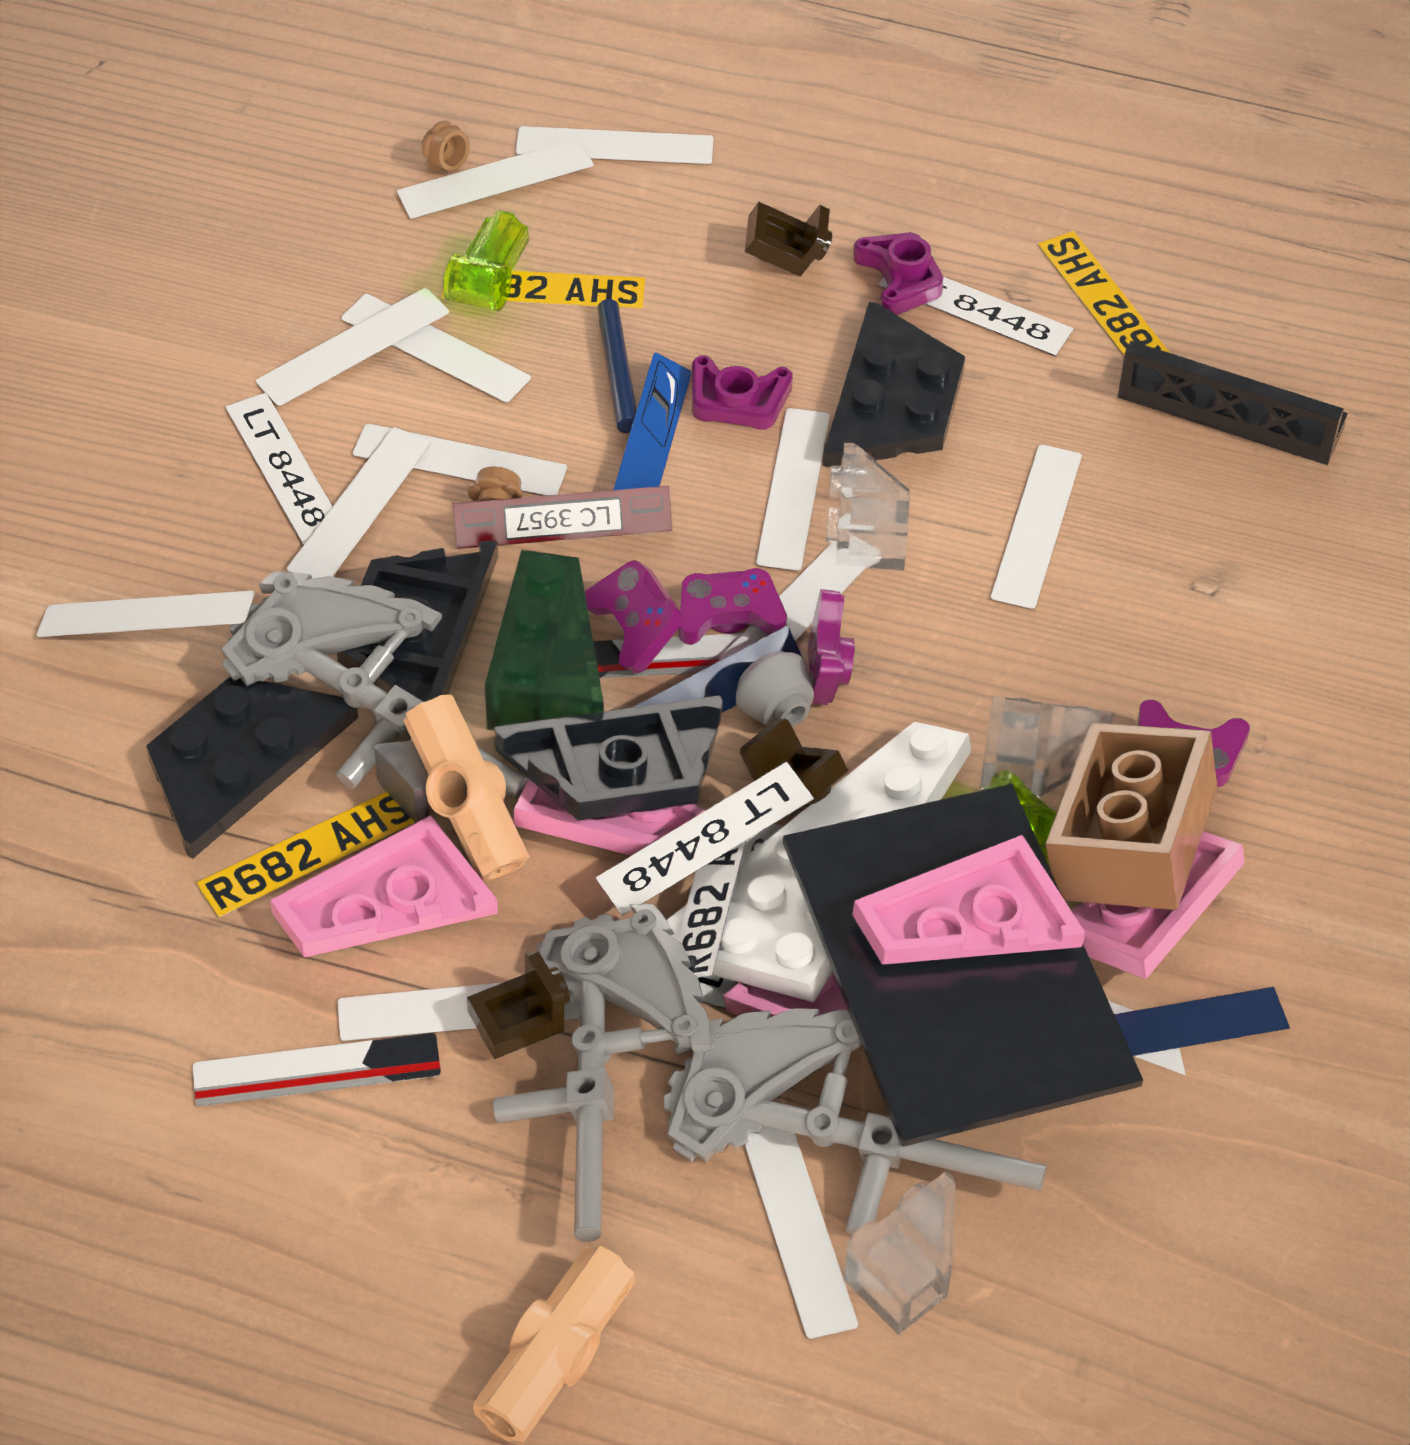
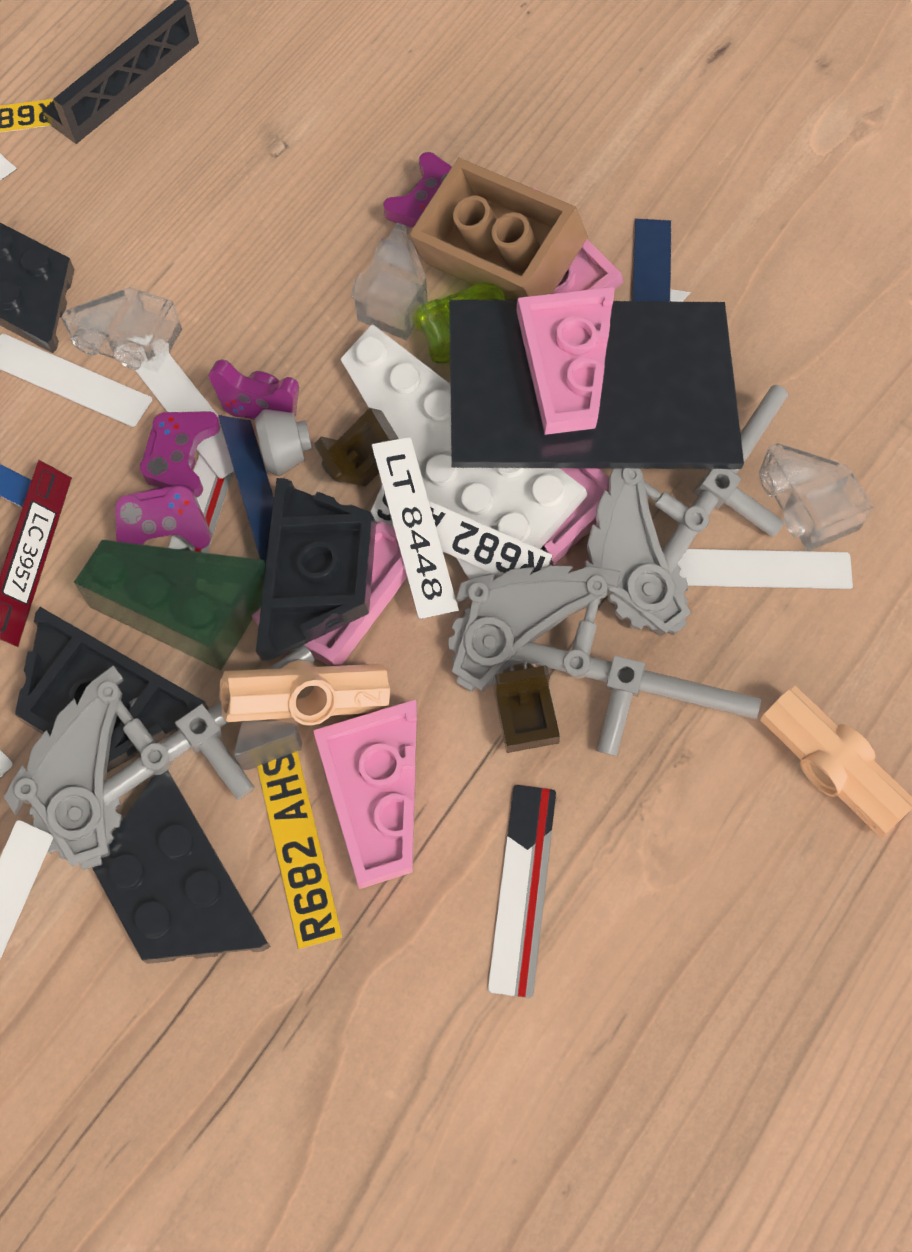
camera: 70 degrees left, 15 degrees up
(414, 1012) = (488, 789): white sticker -> none
(1036, 527) = (178, 231): white sticker -> none

